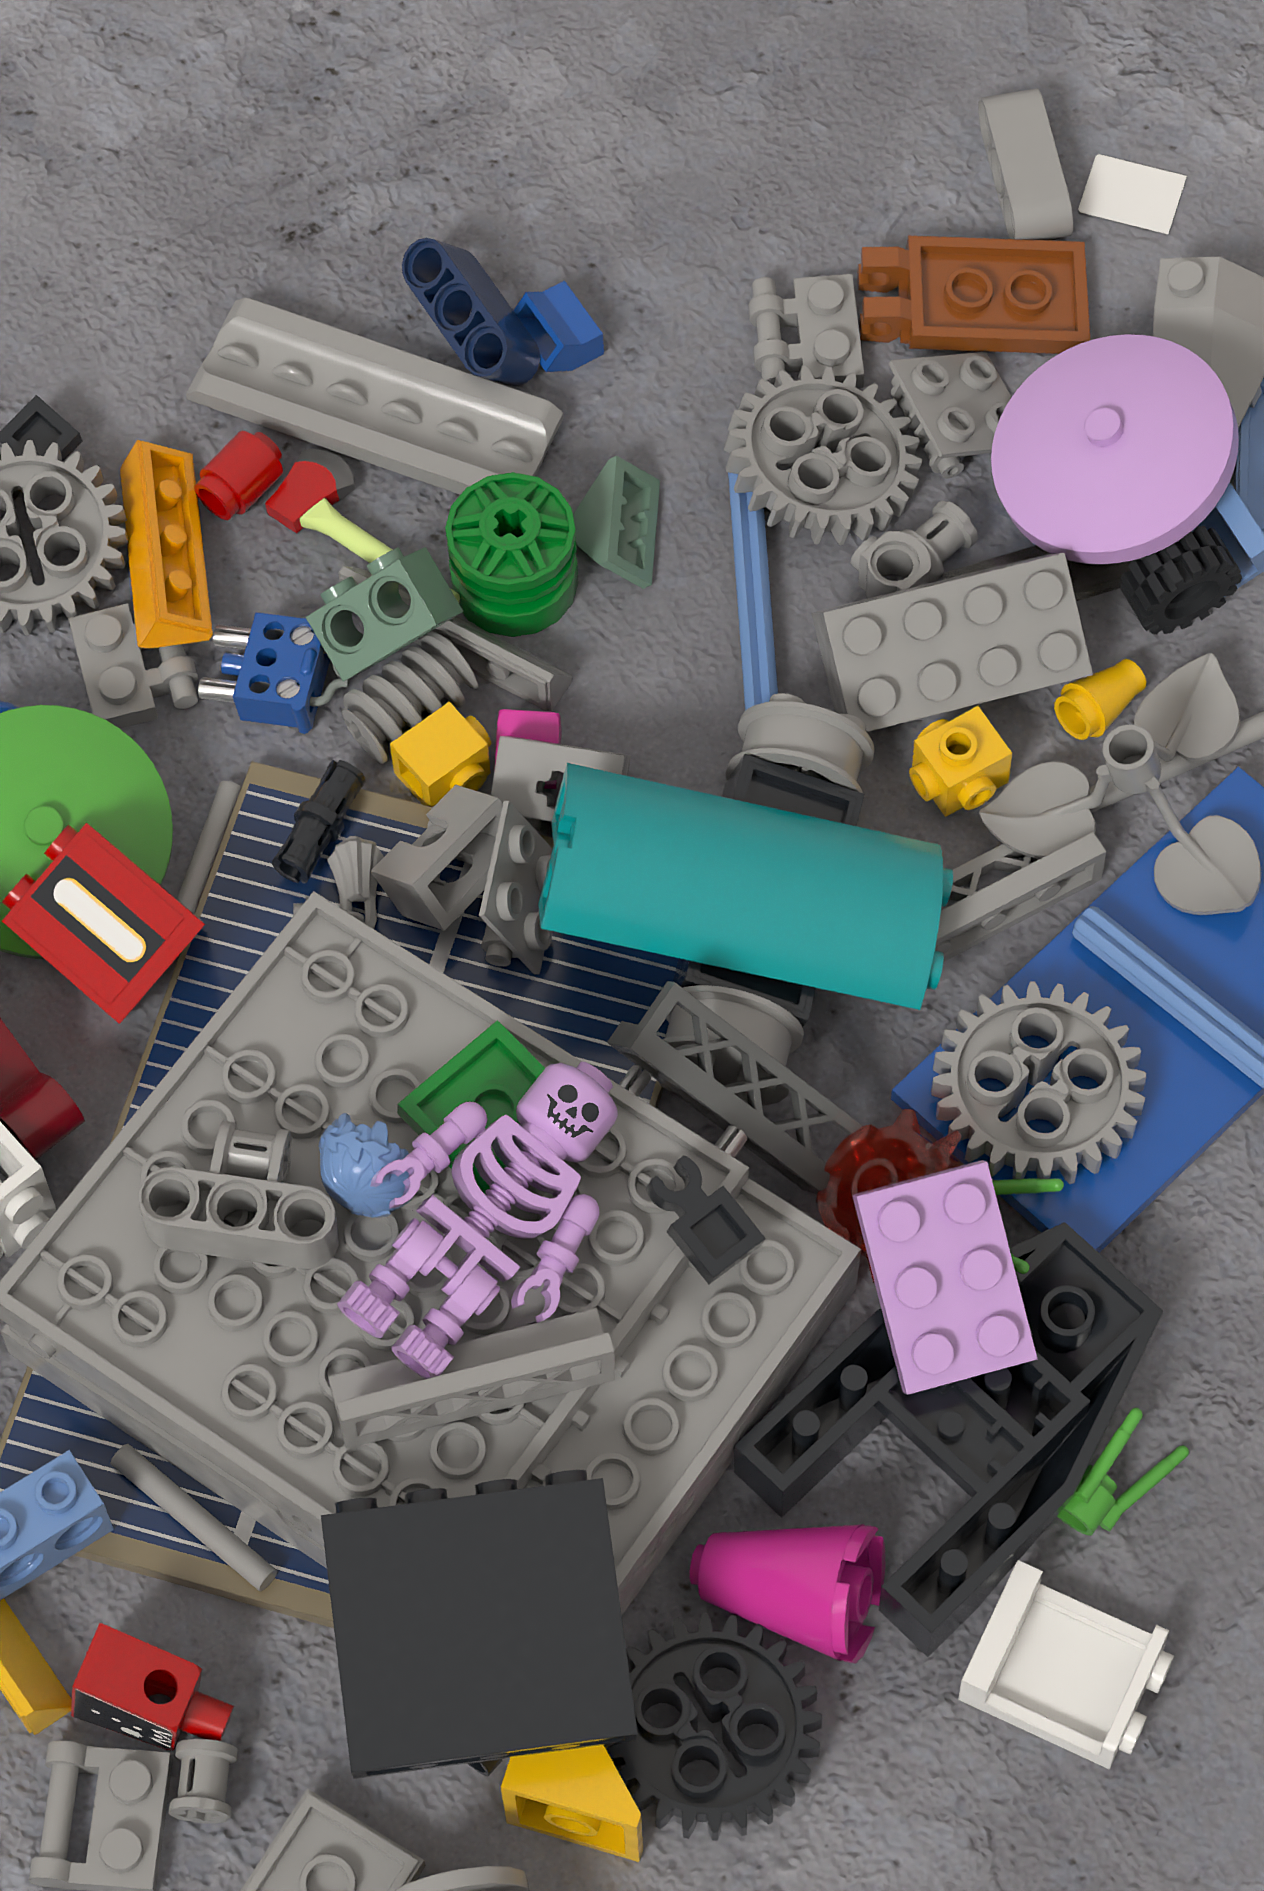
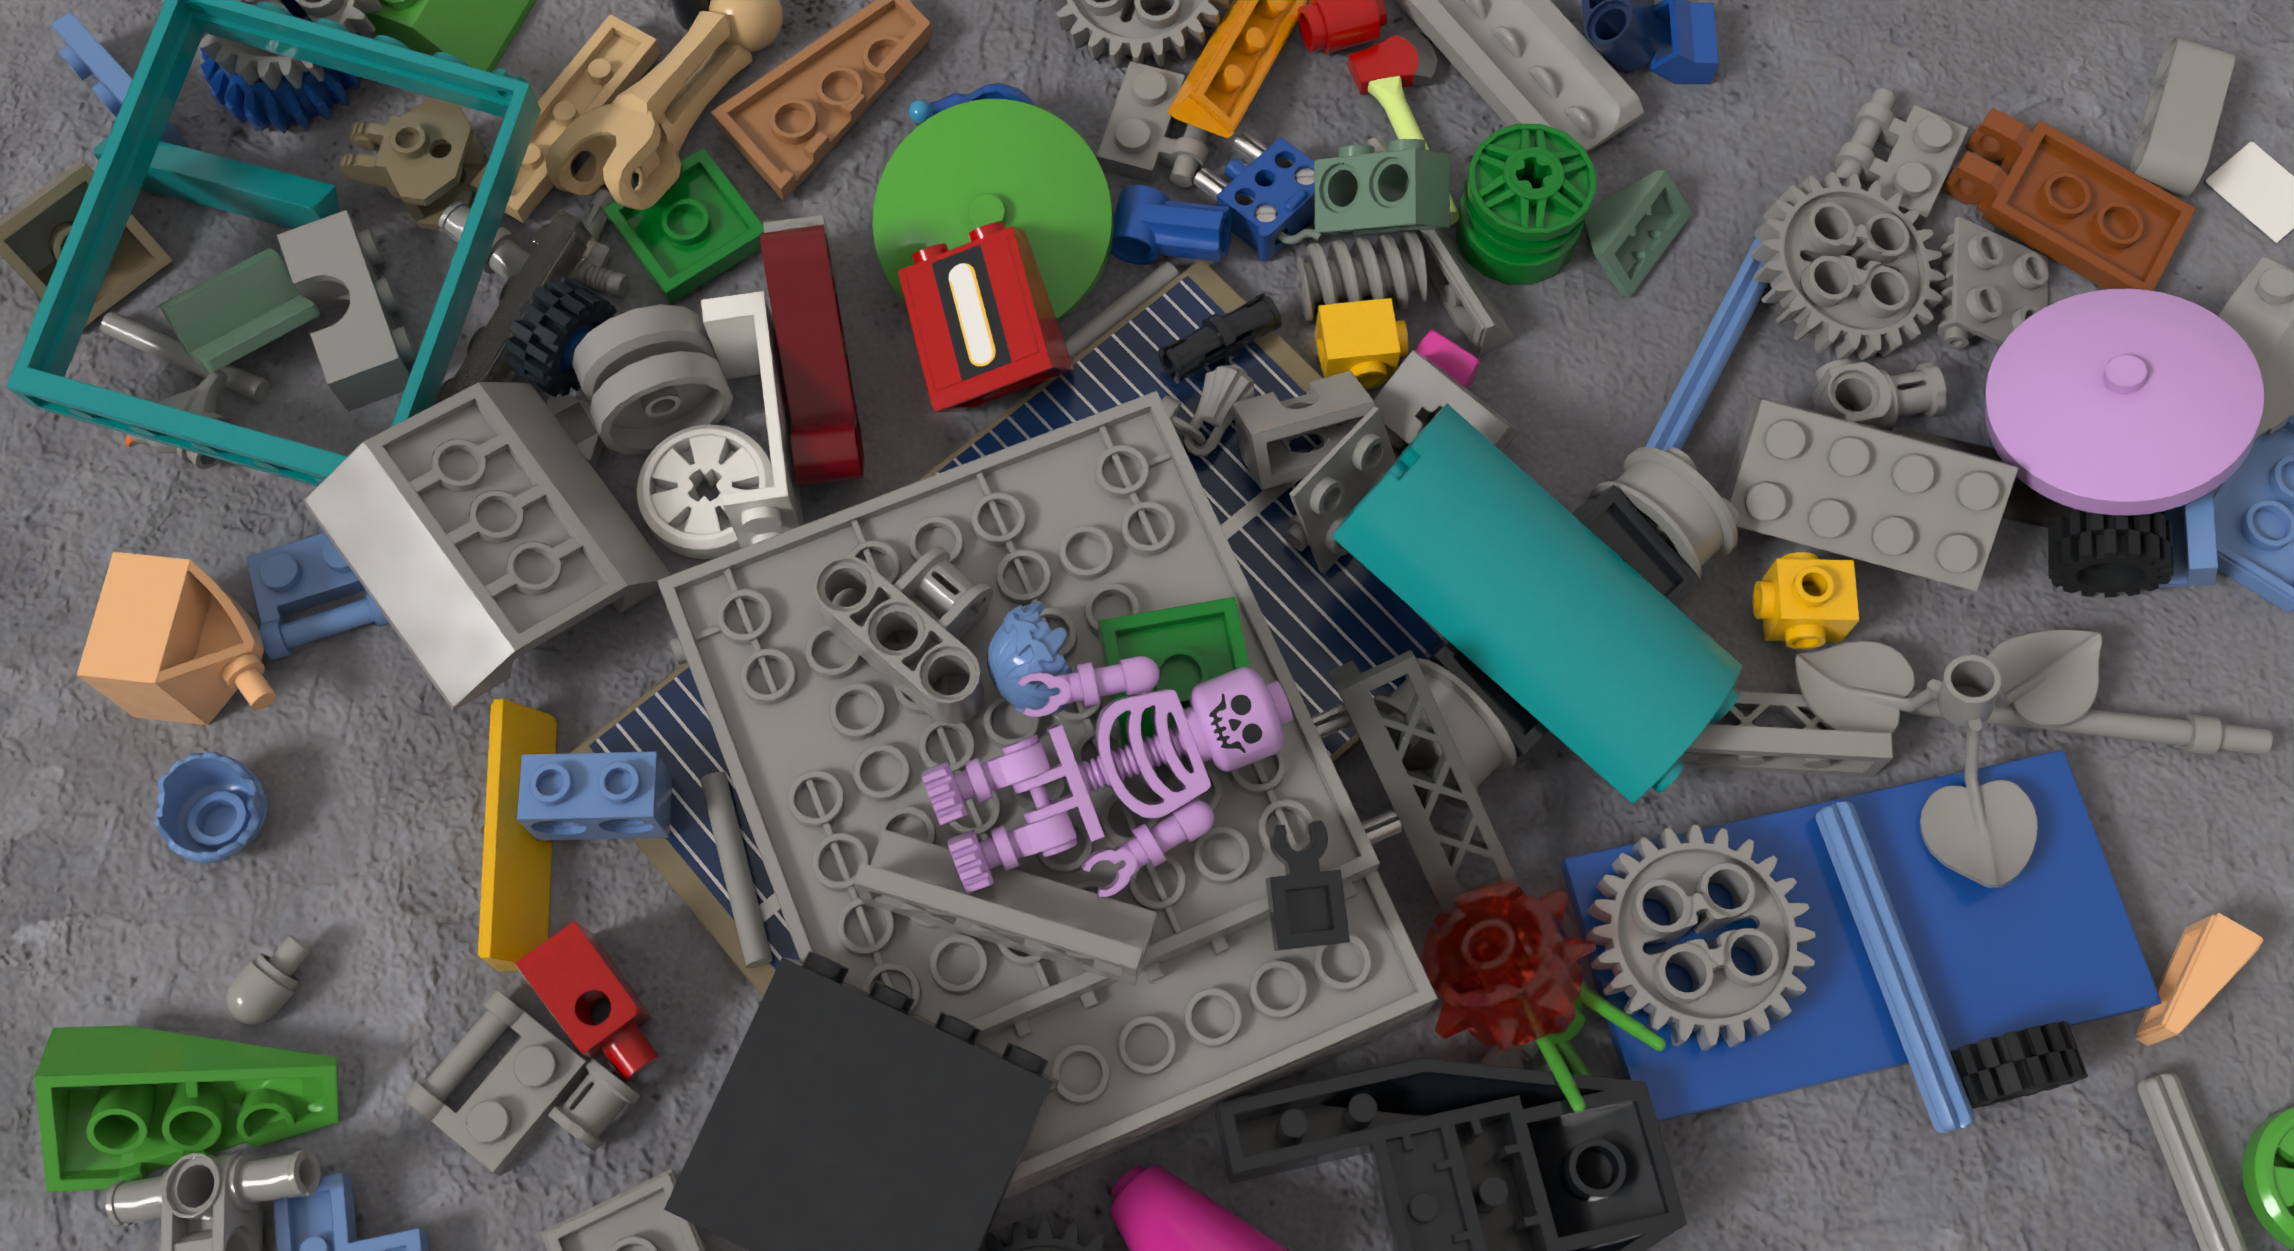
camera: 30 degrees right, 5 degrees up
(196, 753) = (1155, 226): none -> blue piece
(944, 1277) = (1498, 1073): lavender plate -> none
(1095, 701) = (1963, 616): yellow cone -> none

